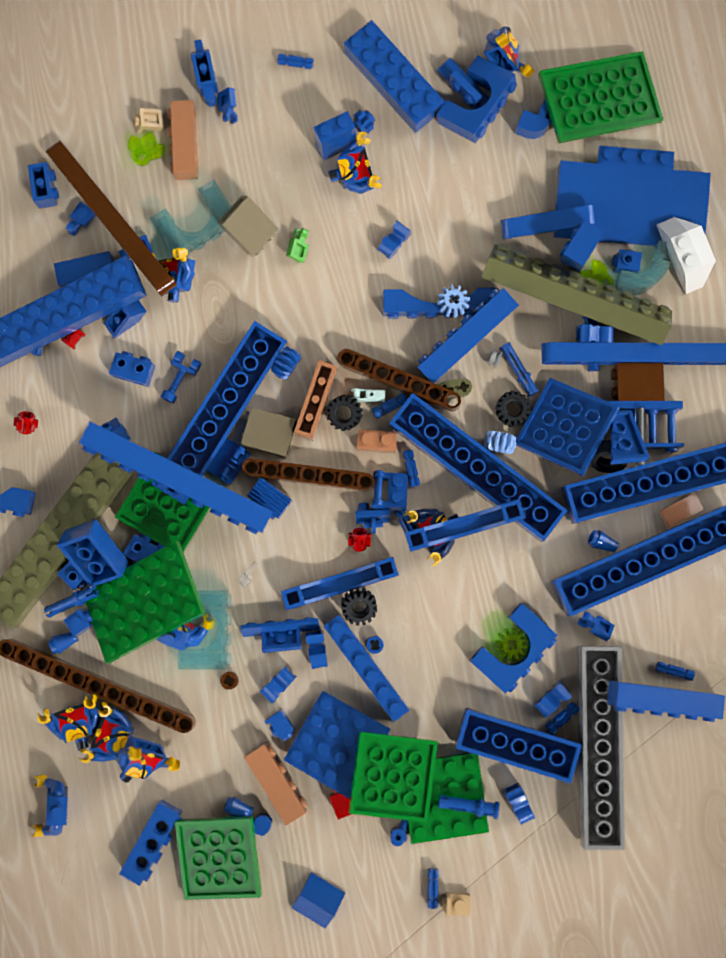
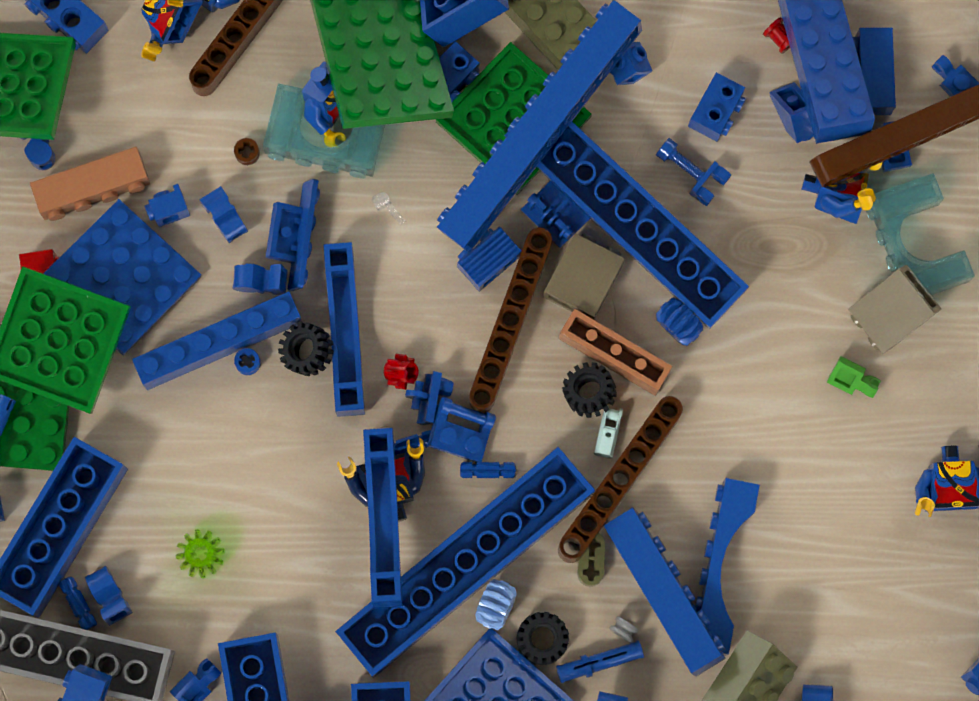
camera: 95 degrees right, 5 degrees down
(237, 808) = (70, 126): blue cone -> none
(376, 441) = (537, 427): nougat brick -> none
(389, 405) = (587, 458): blue axle -> none
(393, 241) = (832, 519): blue leg -> none
(452, 307) = (728, 585): light blue gear -> none
(538, 637) = (159, 533): blue arch -> none

